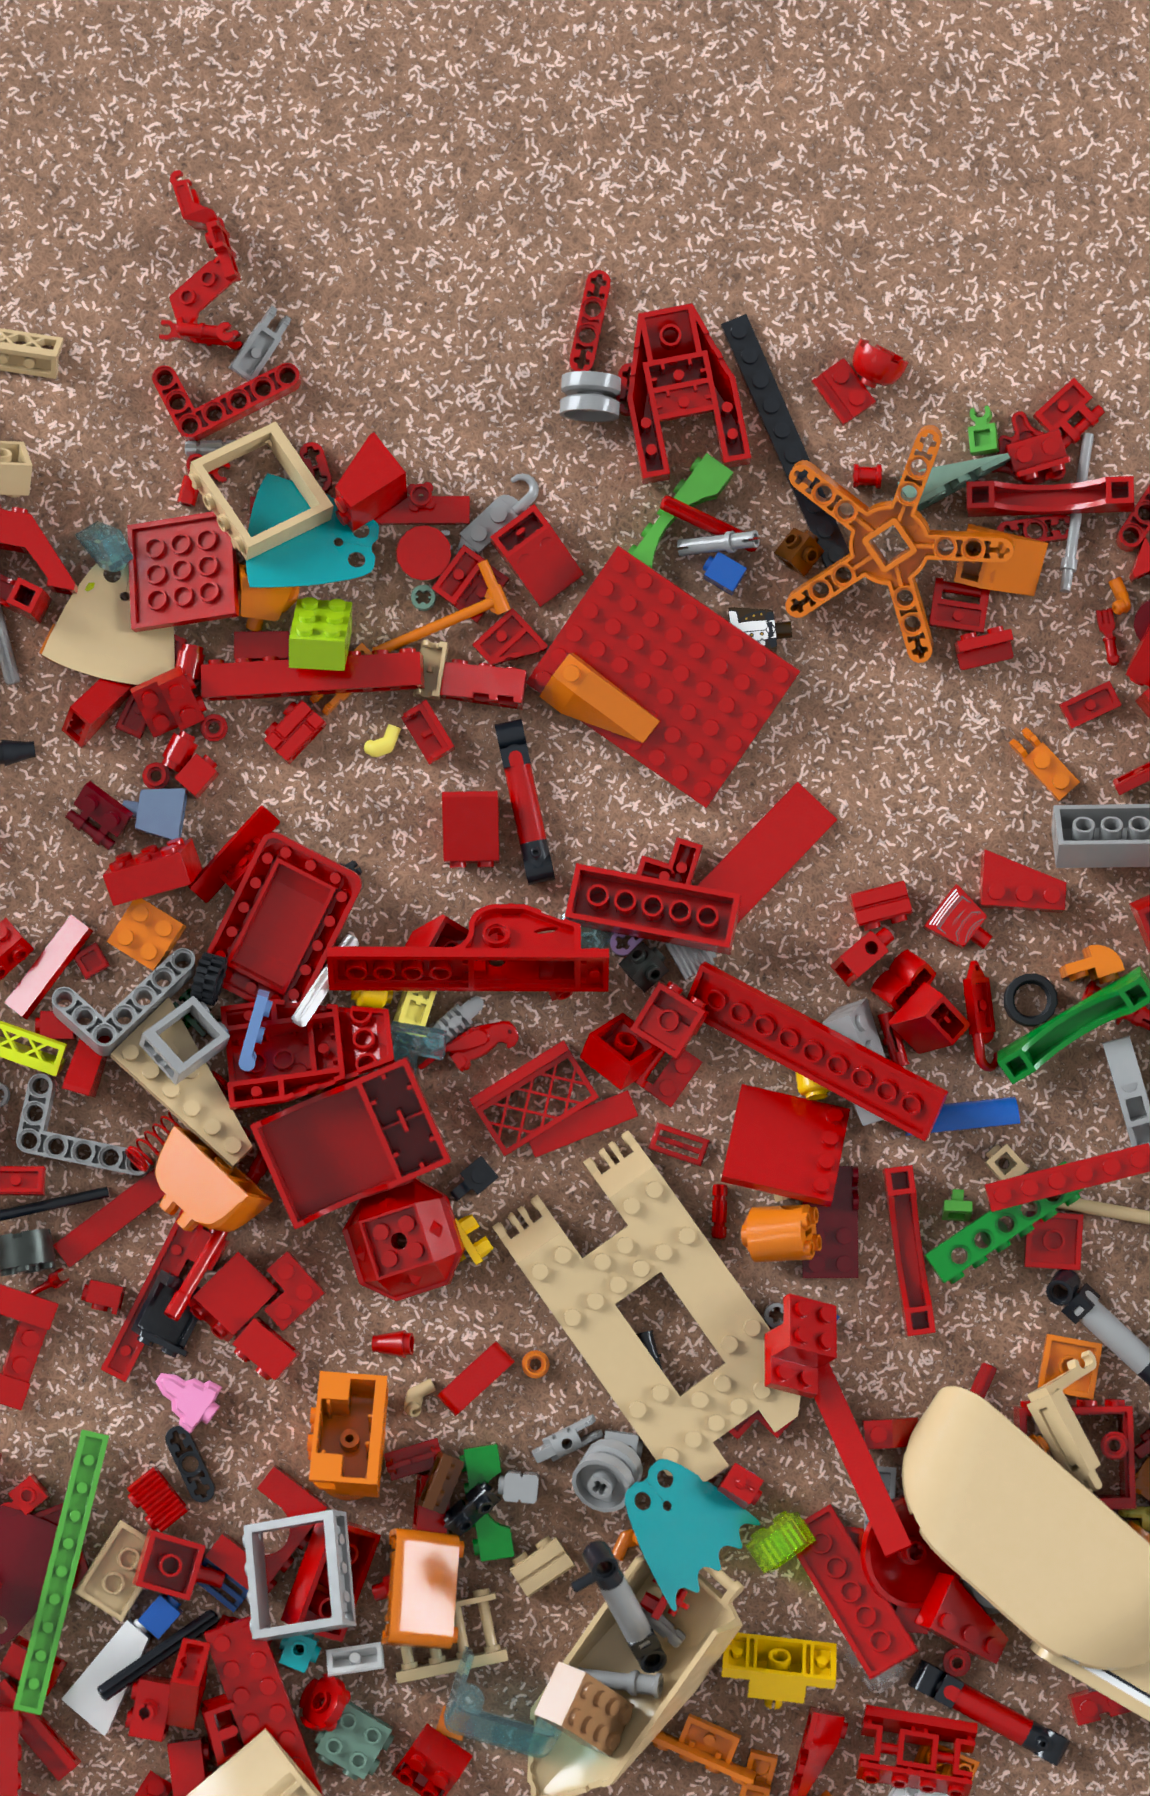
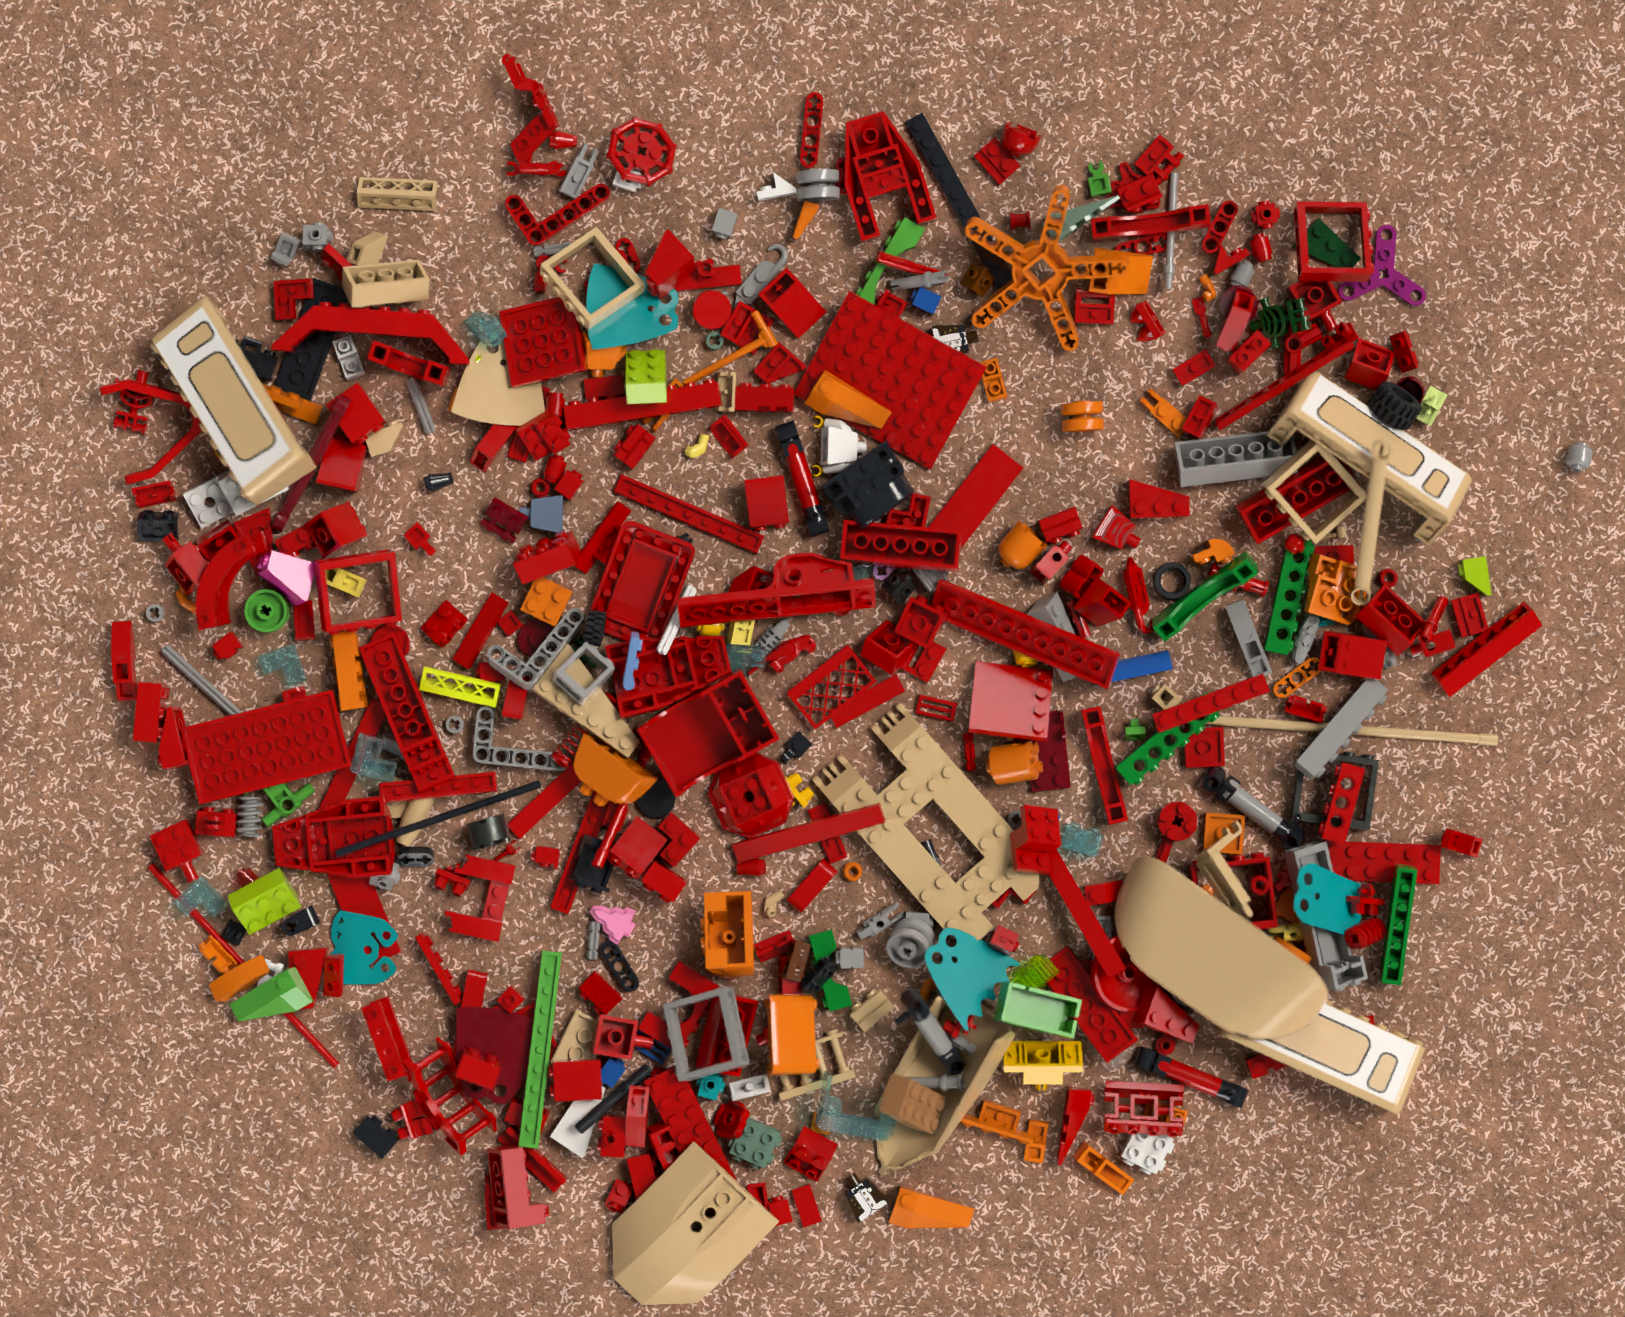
camera: 10 degrees left, 5 degrees up
(107, 1621) = (576, 1079): none -> red brick
(114, 984) = (528, 638): none -> dark red tile
(157, 1423) = (593, 940): none -> light grey axle
(210, 719) = (581, 454): red plate -> none
(242, 300) = (562, 140): none -> red cone
(269, 1232) = (657, 800): none -> black tile
(332, 372) = (632, 186): none -> white brick
(350, 311) = (644, 141): none -> red plate
(360, 834) = (689, 513): none -> red tile
(454, 437) = (724, 223): none -> light grey brick
(479, 1301) = (809, 832): none -> red tile
(506, 1306) = (832, 846): none -> red tile
(540, 399) = (782, 189): none -> white slope
(570, 437) = (807, 213): none -> orange slope
(579, 761) = (838, 446): none -> white torso
(617, 821) = (869, 487): none -> black brick
(676, 570) = (891, 303): none -> red bracket
(778, 1591) = (1037, 1009): none -> piece
(807, 695) = (993, 381): none -> orange slope
(821, 929) = (1020, 547): none -> orange cylinder
(867, 1354) = (1082, 840): none -> clear light blue brick
(926, 755) = (1082, 416): none -> orange wheel
(982, 650) = (1115, 336): red bracket -> none
(1019, 1348) = (1181, 810): none -> red brick
(1038, 644) = (1152, 327): none -> red tile
(1092, 775) = (1200, 418): none -> red hinge

